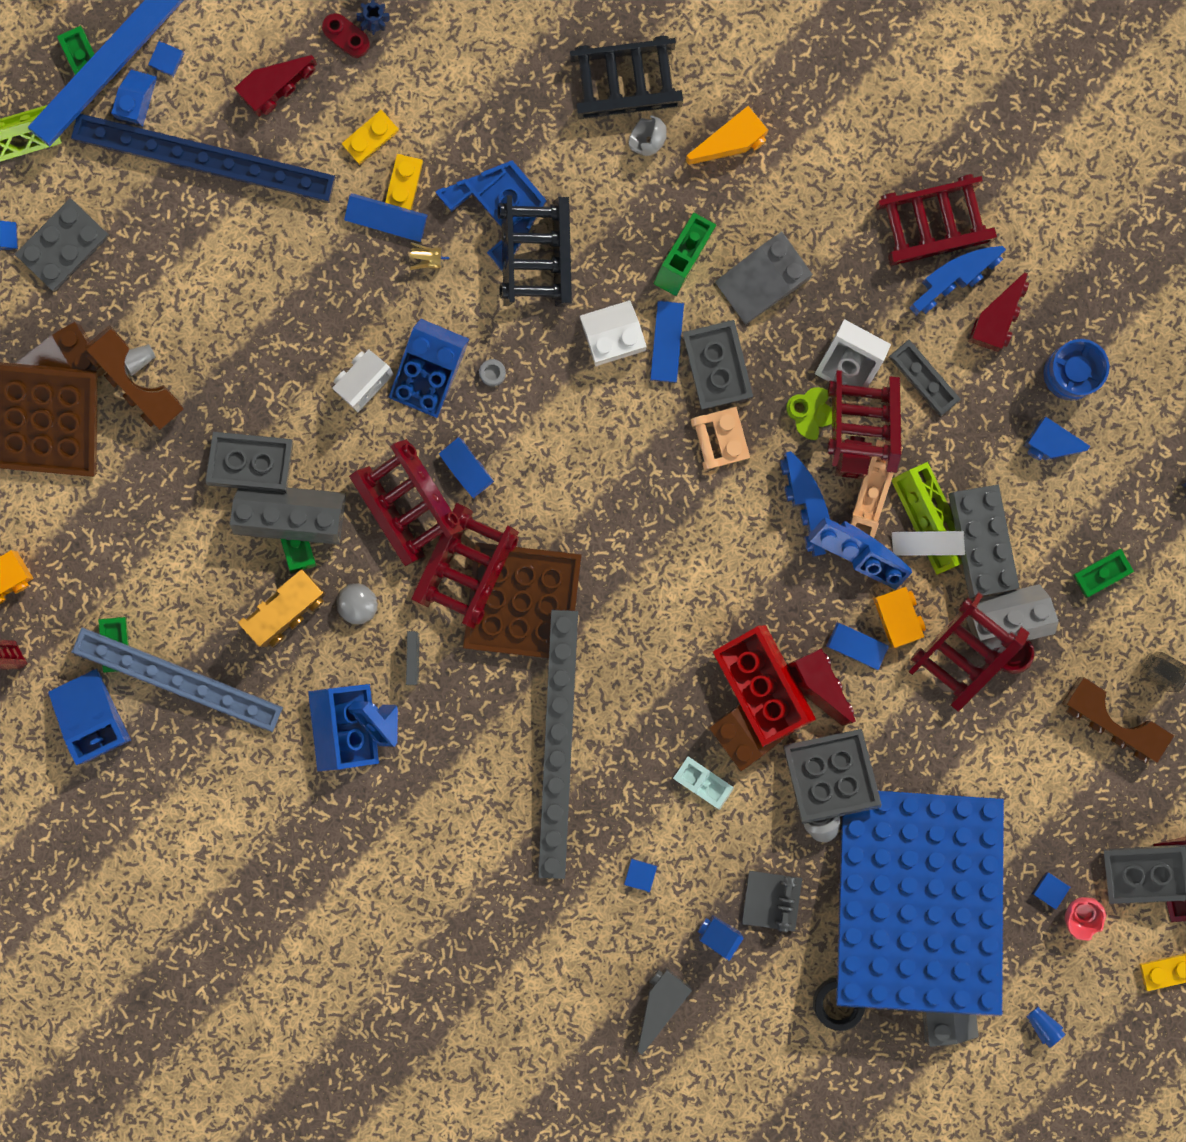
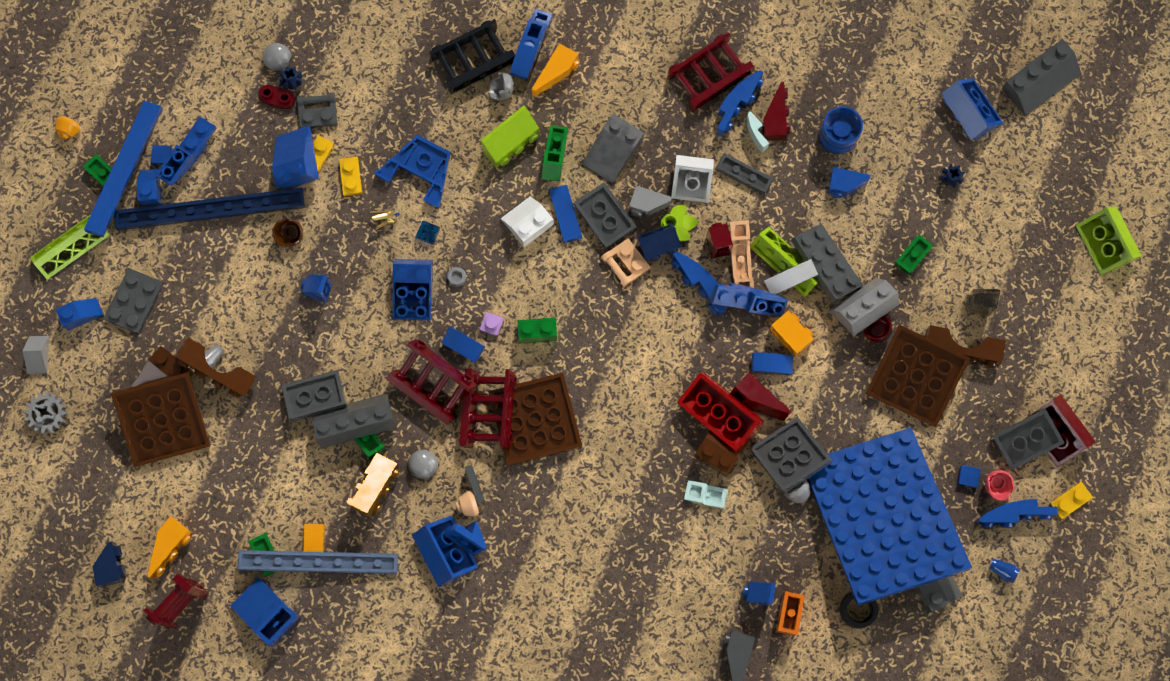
camera: 15 degrees left, 10 degrees down
(183, 646) = (314, 537): none -> light orange tile
(199, 70) = (187, 153): none -> blue slope
(270, 83) = (236, 146): dark red slope -> none
(289, 222) = (286, 228): none -> reddish brown hair
(303, 319) = (316, 287): none -> blue slope
(337, 132) = (294, 159): none -> blue slope
(362, 380) = (371, 313): white slope -> none
(385, 217) = (346, 202): blue tile -> none
(390, 83) = (317, 116): none -> dark grey plate
(394, 679) = (467, 504): none -> light nougat cone
(476, 298) = (427, 232): none -> tile
(514, 454) = (491, 324): none -> lavender plate
(558, 239) = (467, 173): black fence -> none
(558, 744) = (597, 506): dark grey plate -> none
(569, 486) = (537, 330): none -> green brick
(633, 212) = (510, 137): none -> lime slope
(640, 875) = (688, 574): blue tile -> none
(710, 90) = (530, 44): none -> blue slope
(748, 977) = (790, 613): none -> orange brick
(772, 901) = (784, 556): dark grey hinge -> none
(774, 430) = (659, 242): none -> dark blue brick
(780, 368) = (647, 202): none -> light grey slope
(889, 413) = (730, 202): dark red fence -> none
(963, 320) = (754, 128): none -> light aqua slope
(978, 675) = (860, 349): dark red fence -> none
(1039, 737) = (917, 375): none -> reddish brown plate
(1082, 957) = (1009, 513): none -> blue slope

